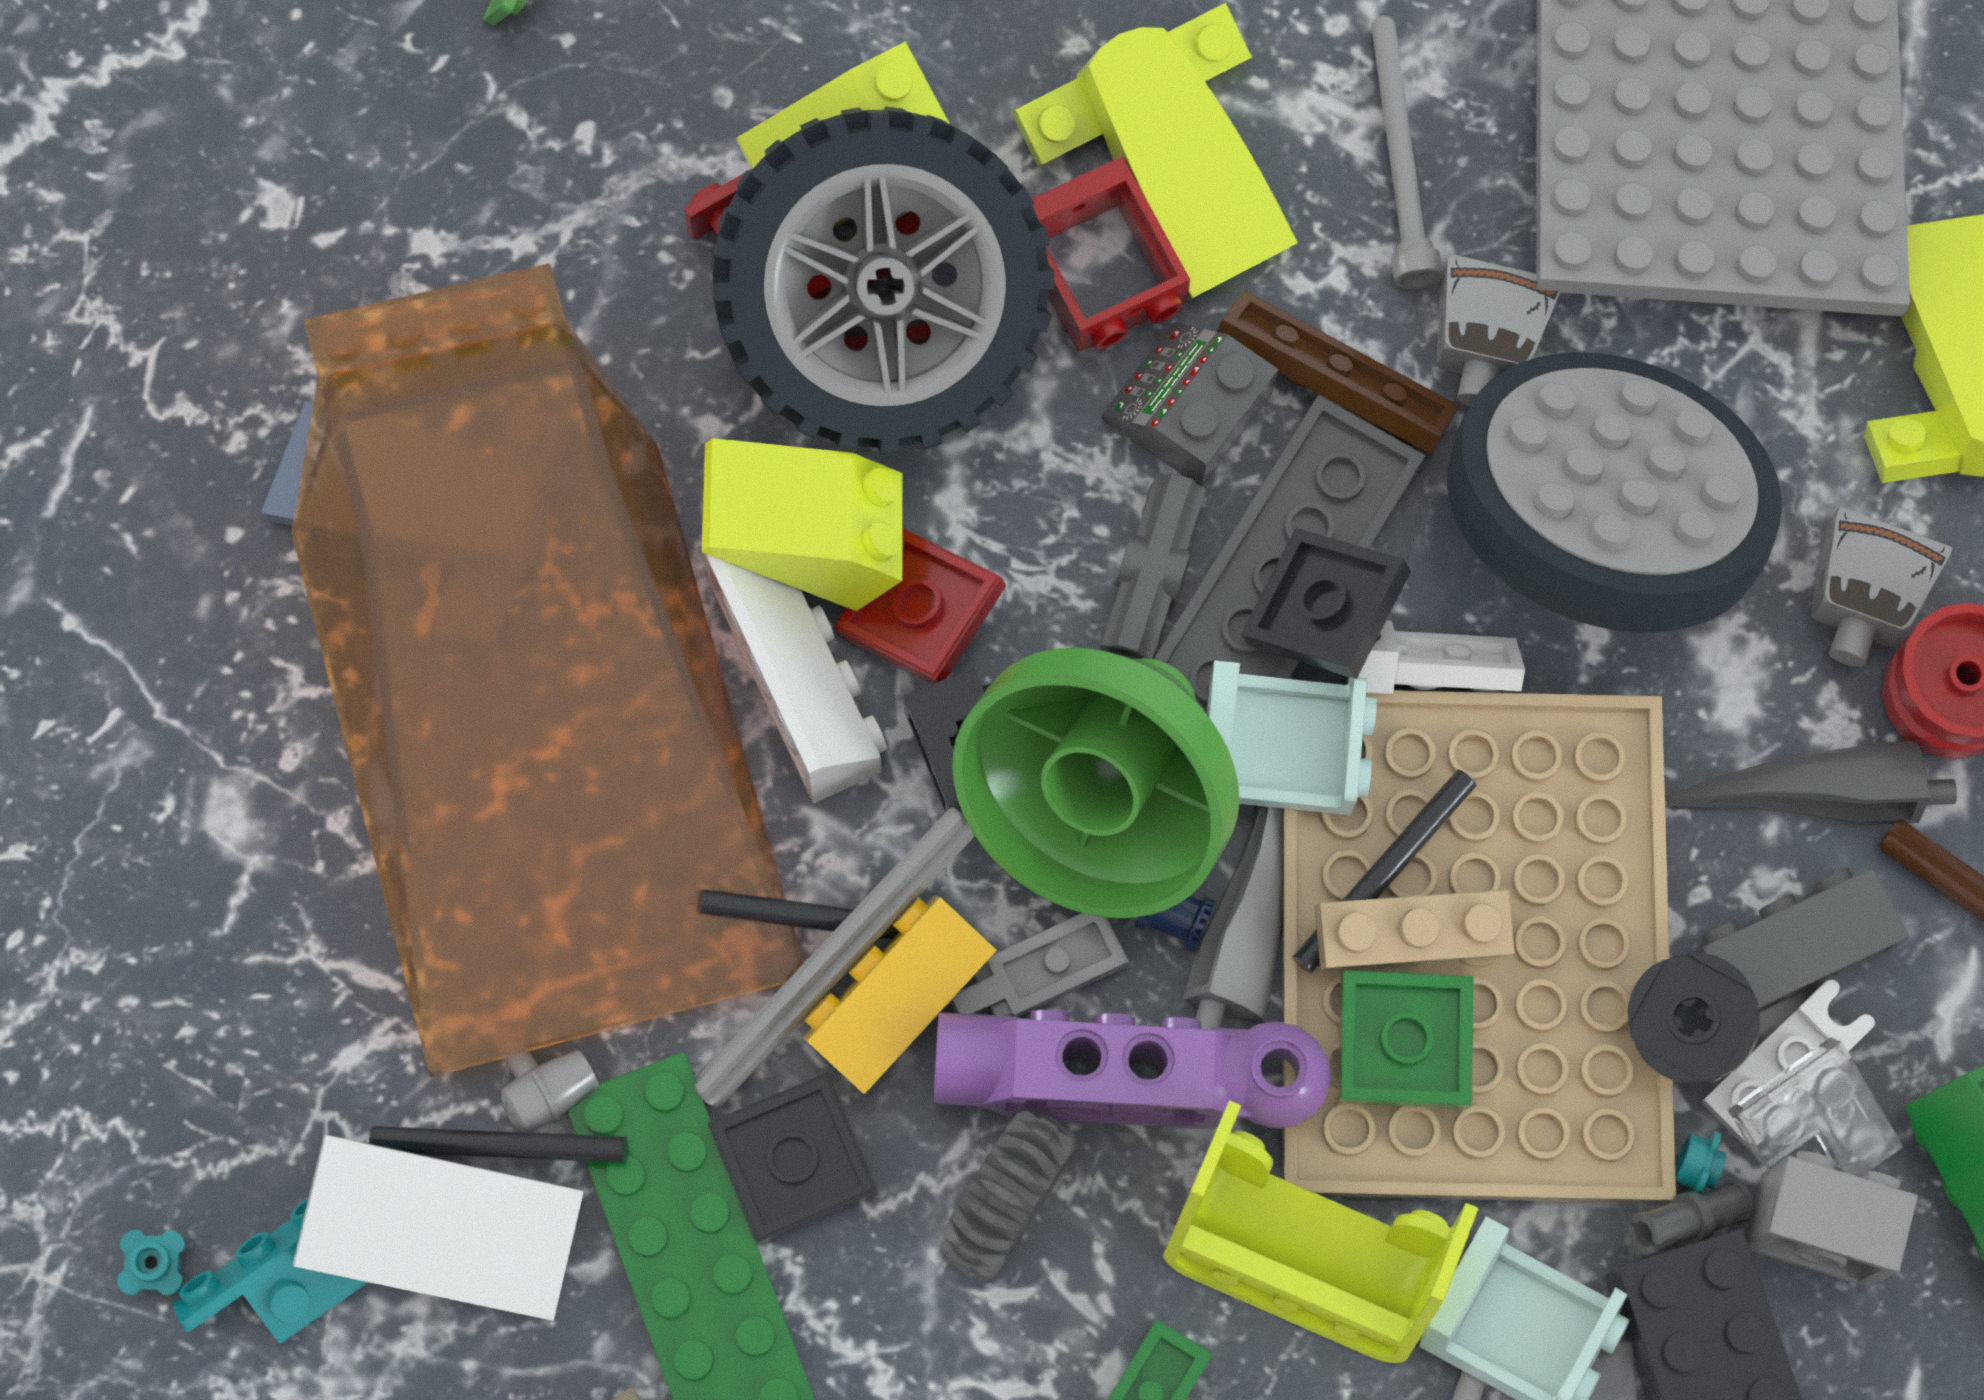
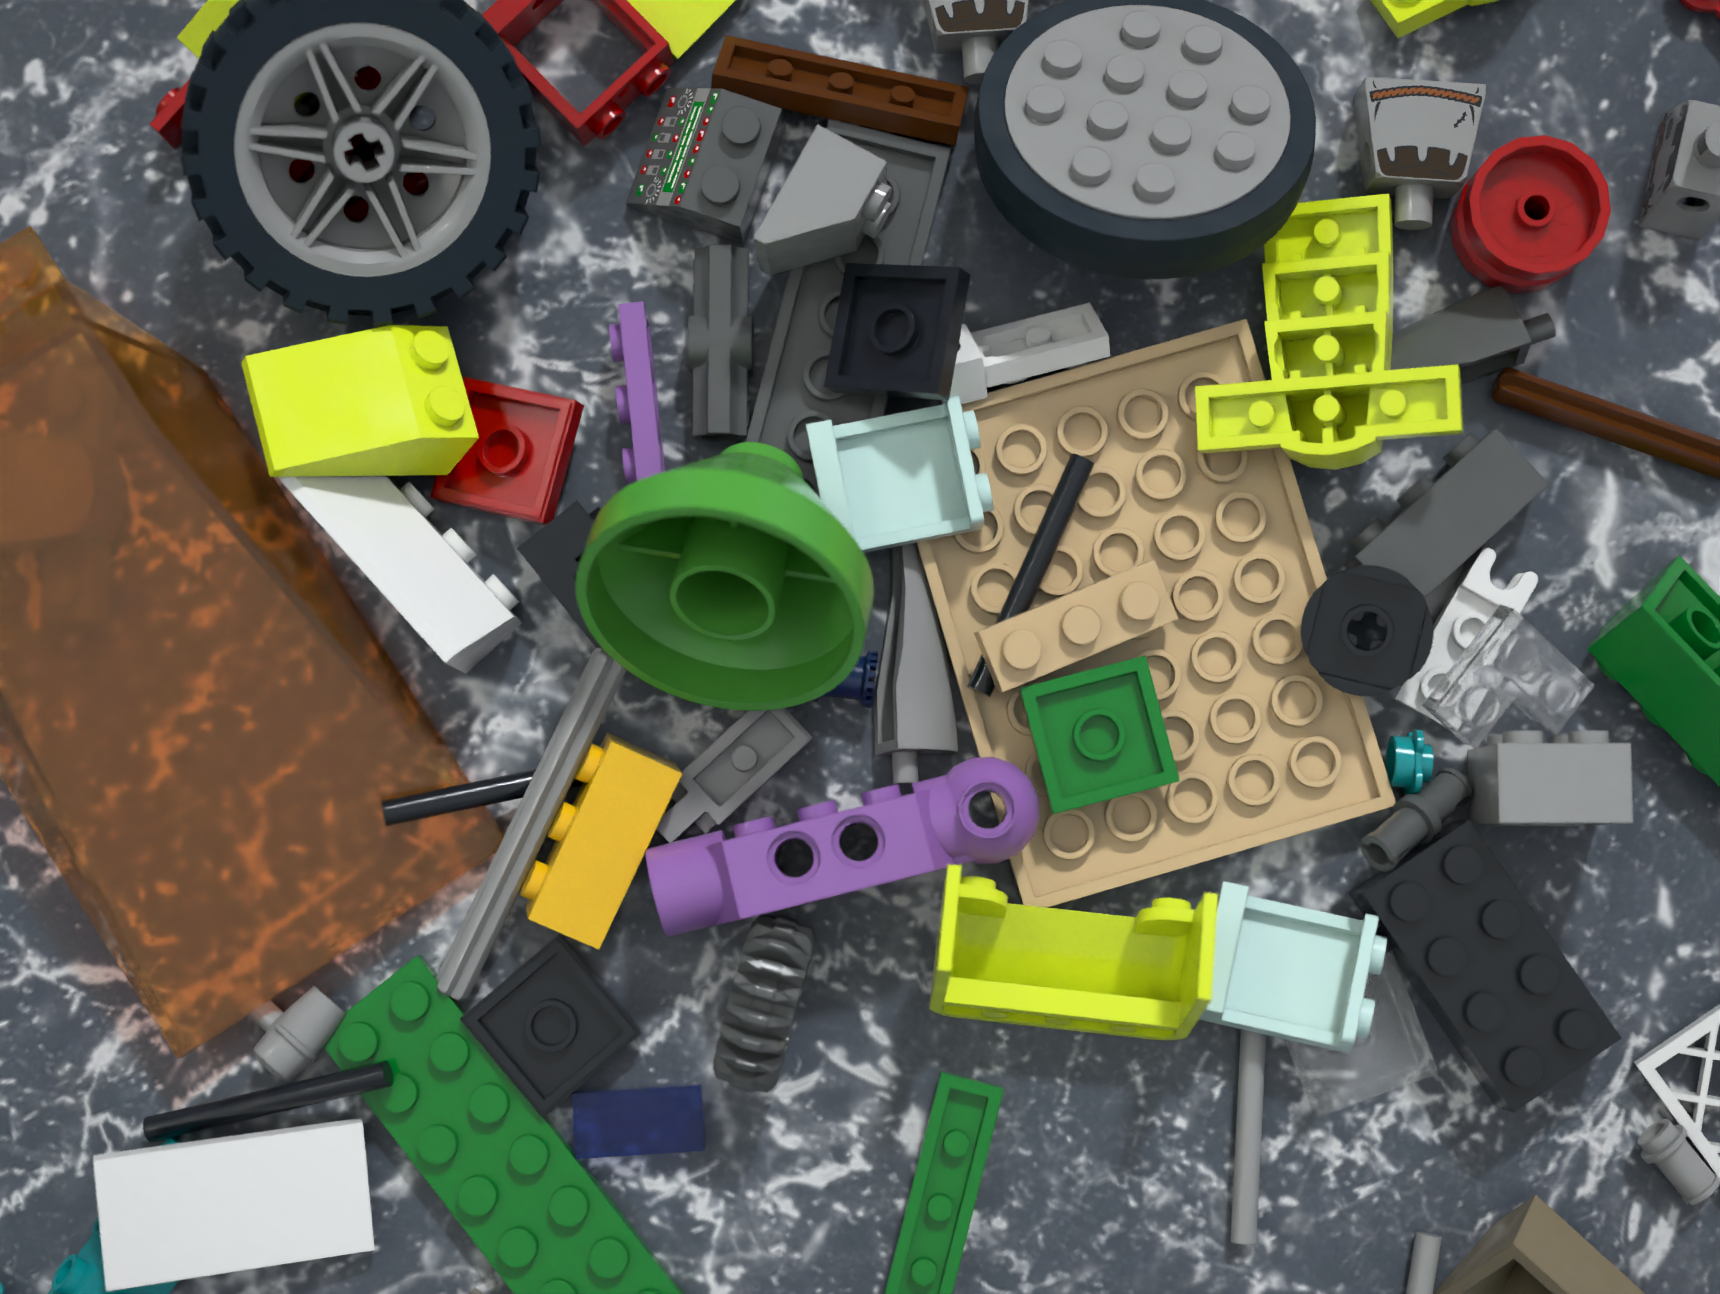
camera: 10 degrees left, 10 degrees up
(847, 1278) = (639, 1121): none -> clear blue tile
(1059, 596) = (639, 398): none -> medium lavender plate
(1292, 467) = (824, 205): none -> light grey slope
(1733, 746) = (1330, 349): none -> neon yellow slope

